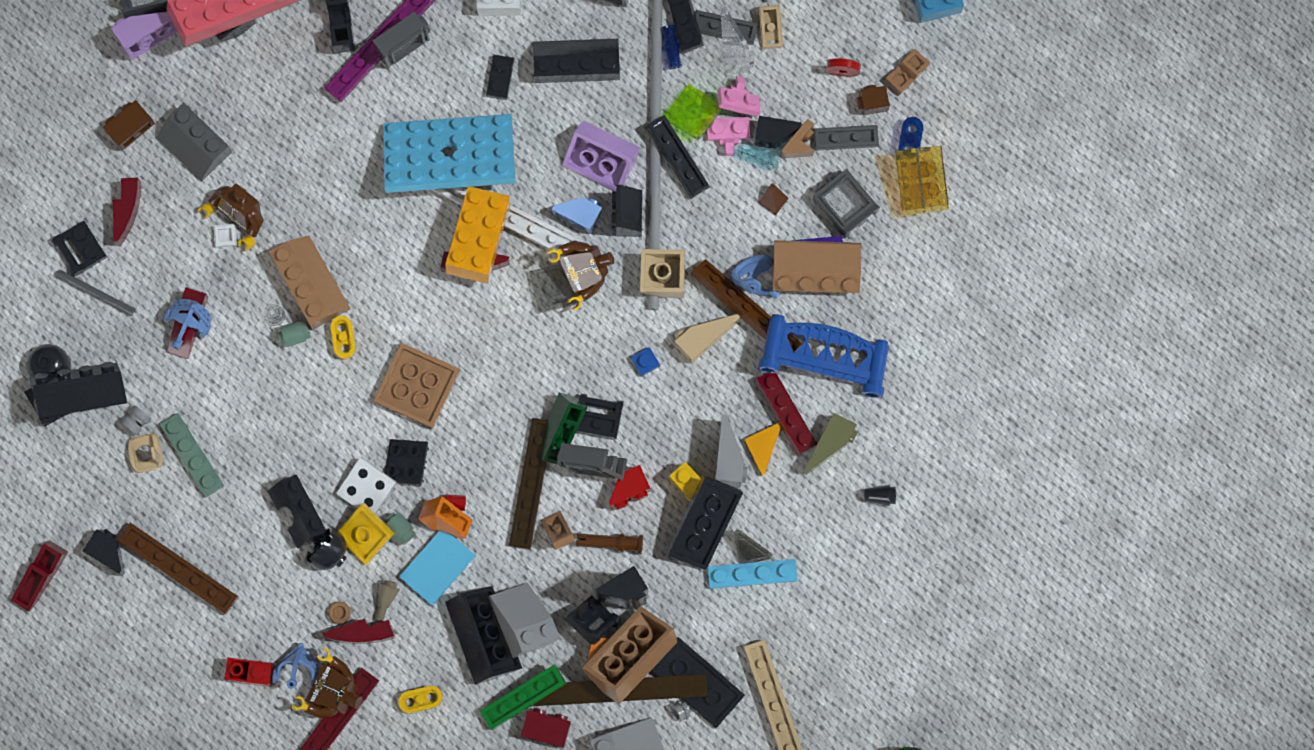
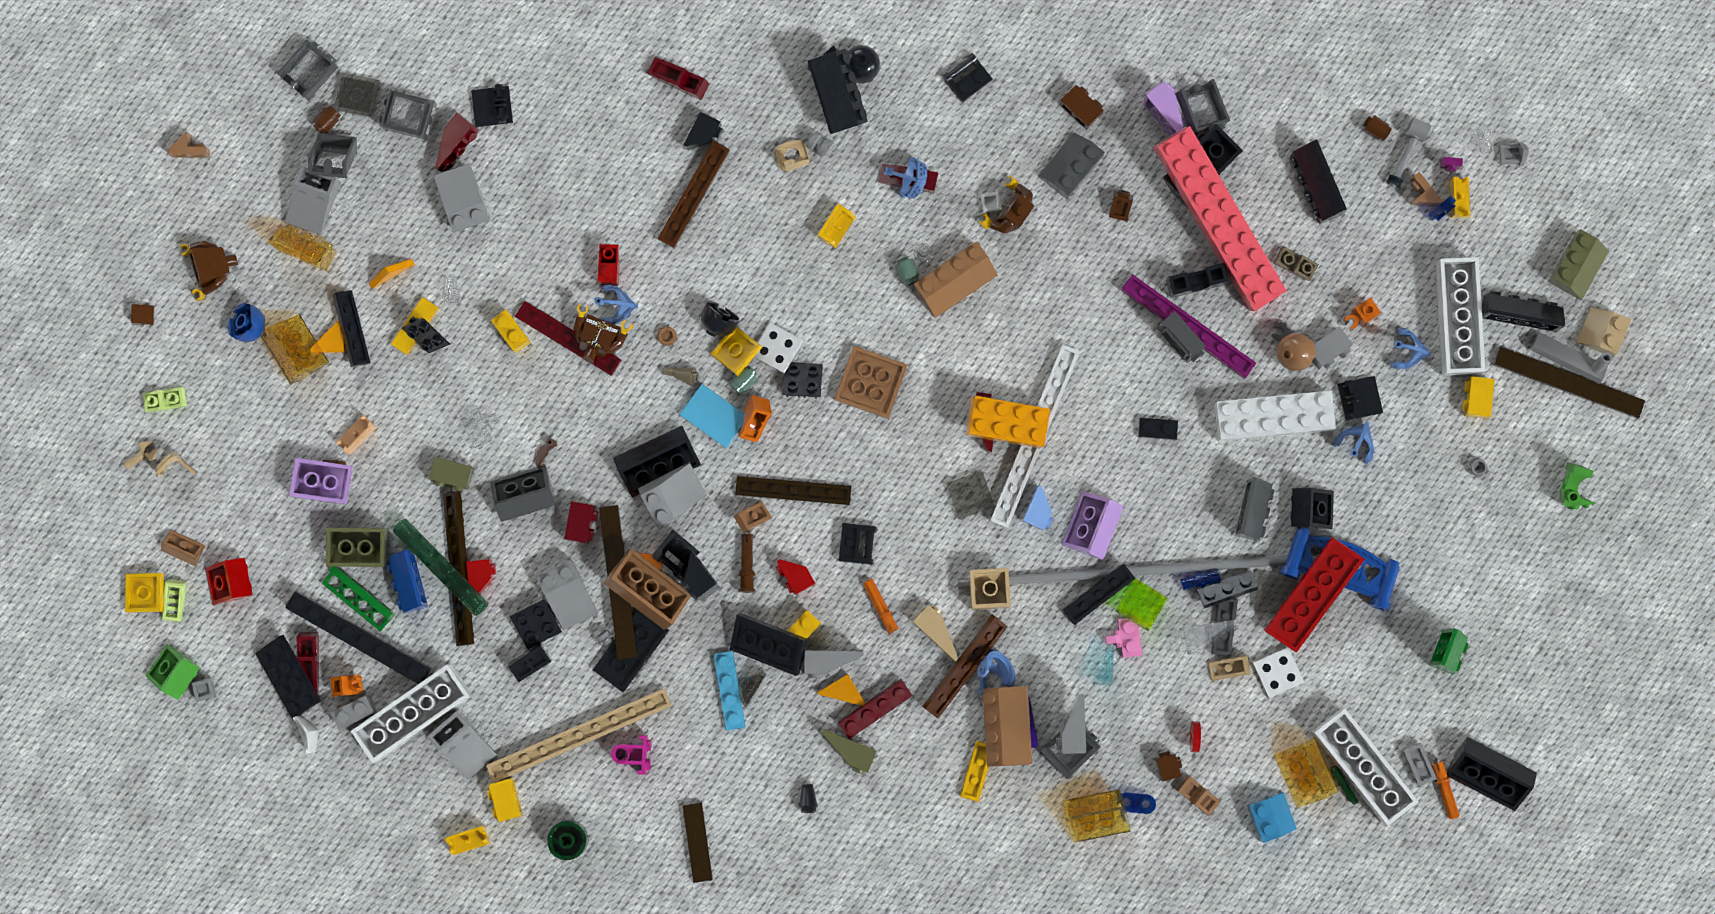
camera: 90 degrees right, 5 degrees up
(95, 292) = (929, 96): dark grey bar -> none
(126, 209) = (1005, 113): dark red slope -> none
(192, 455) = (793, 195): sand green plate -> none
(233, 409) = (836, 226): none -> yellow hinge
(245, 92) = (1121, 205): none -> reddish brown bracket
(306, 522) = (740, 299): black arch -> none
(343, 338) = (907, 312): yellow plate -> none
(361, 633) = (650, 356): dark red slope -> none
(415, 156) = (1075, 418): medium azure plate -> none
(420, 699) = (597, 413): yellow plate -> none
(457, 500) = (771, 427): red hinge -> none
(523, 697) = (605, 500): green plate -> none
(562, 425) = (843, 512): dark green slope -> none
(576, 60) = (1180, 495): black slope -> none
(583, 268) = (986, 518): reddish brown torso -> none
(591, 461) = (813, 540): dark grey window -> none
(628, 214) = (1042, 553): black slope -> none
(645, 361) = (910, 581): blue plate -> none
(670, 396) = (880, 606): none -> orange axle
(738, 98) = (1157, 644): bright pink hinge -> none
(773, 199) = (1068, 683): reddish brown slope -> none
(774, 131) = (1129, 676): black slope -> none
(779, 352) = (926, 698): blue piece -> none
(796, 146) = (1118, 698): medium nougat slope -> none
(816, 685) = (635, 754): none -> dark pink pin
(828, 192) = (1073, 734): none -> light grey slope
(846, 137) = (1131, 744): dark grey tile -> none
(864, 308) = (976, 773): none -> yellow tile
(920, 623) = (697, 842): none -> dark brown tile

